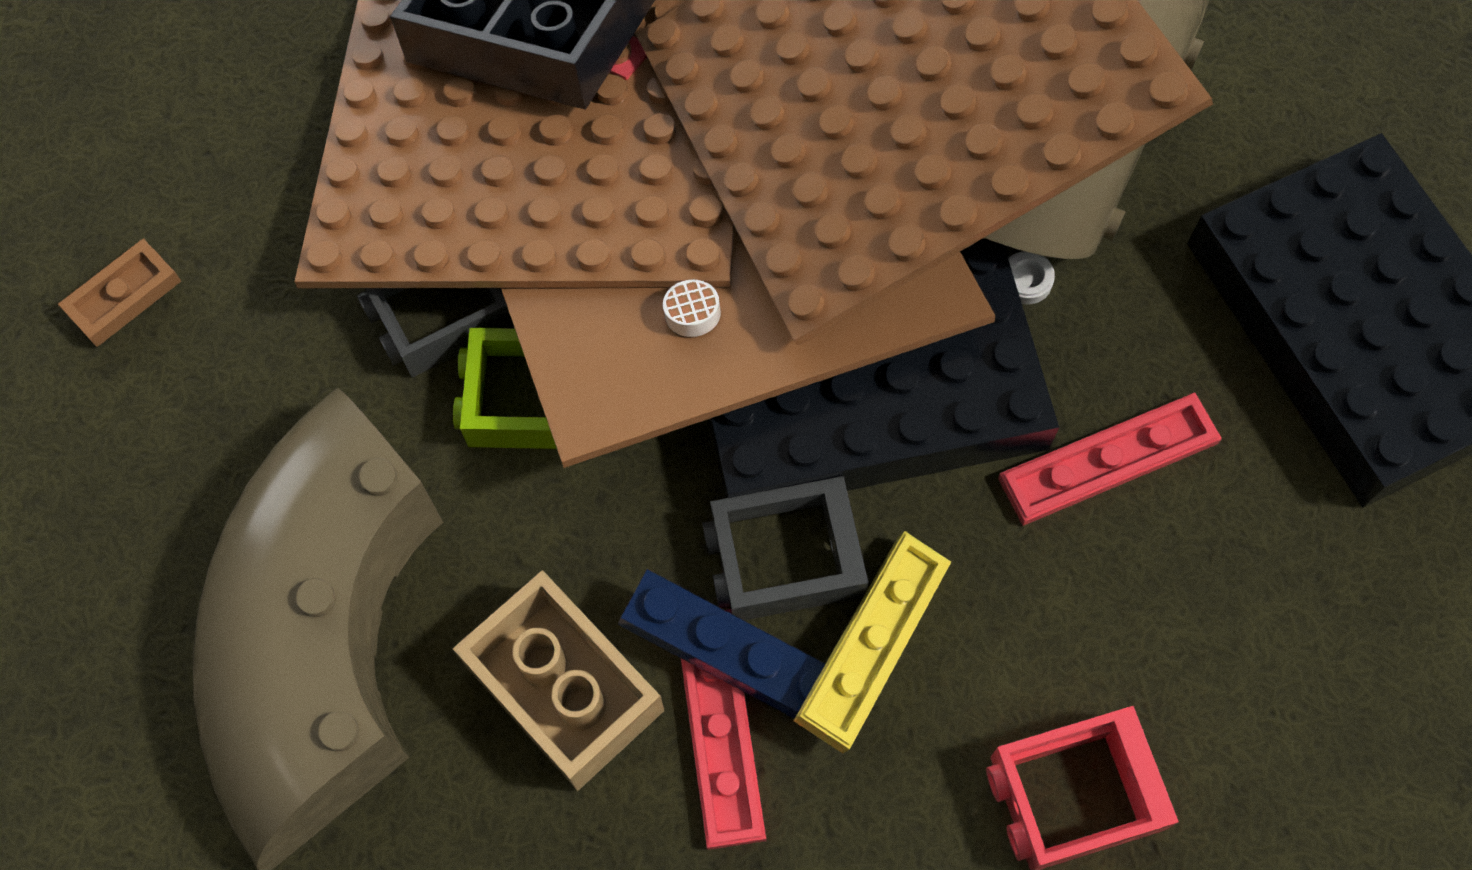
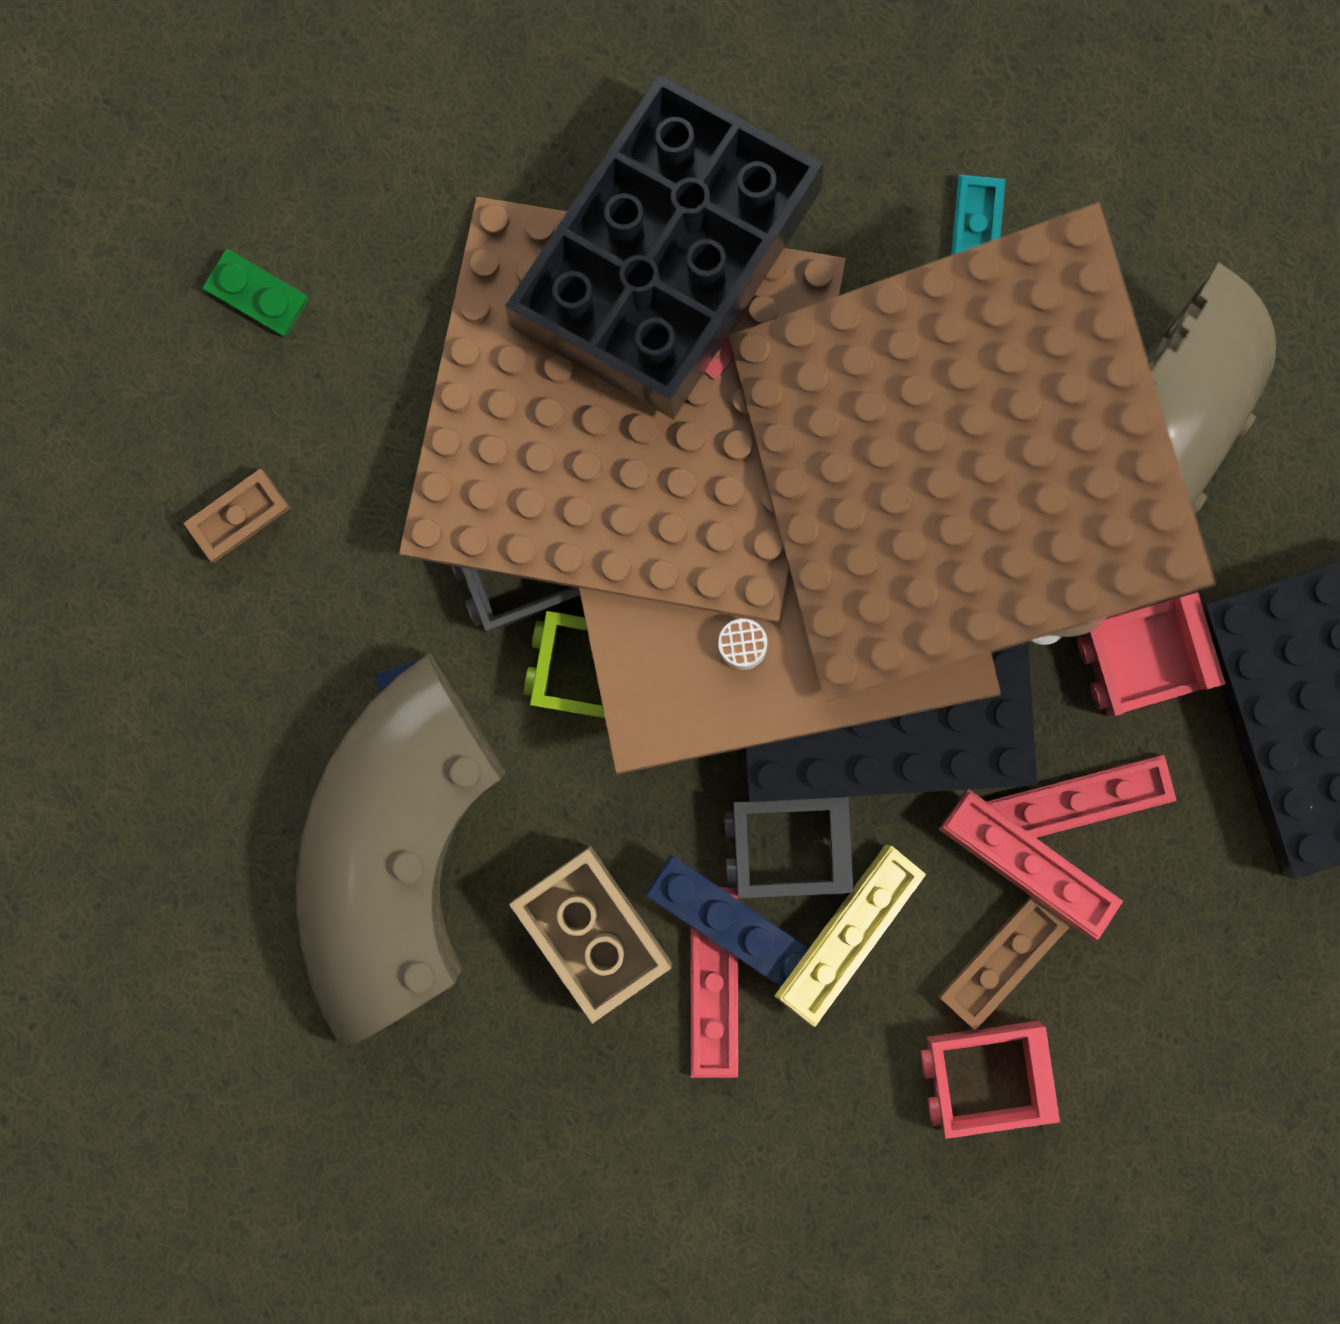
camera: 10 degrees right, 20 degrees up
(138, 83) = (256, 293): none -> green plate
(1064, 647) = (1003, 962): none -> medium nougat plate
(1073, 527) = (1031, 865): none -> coral tile
(1155, 291) = (1151, 655): none -> coral panel

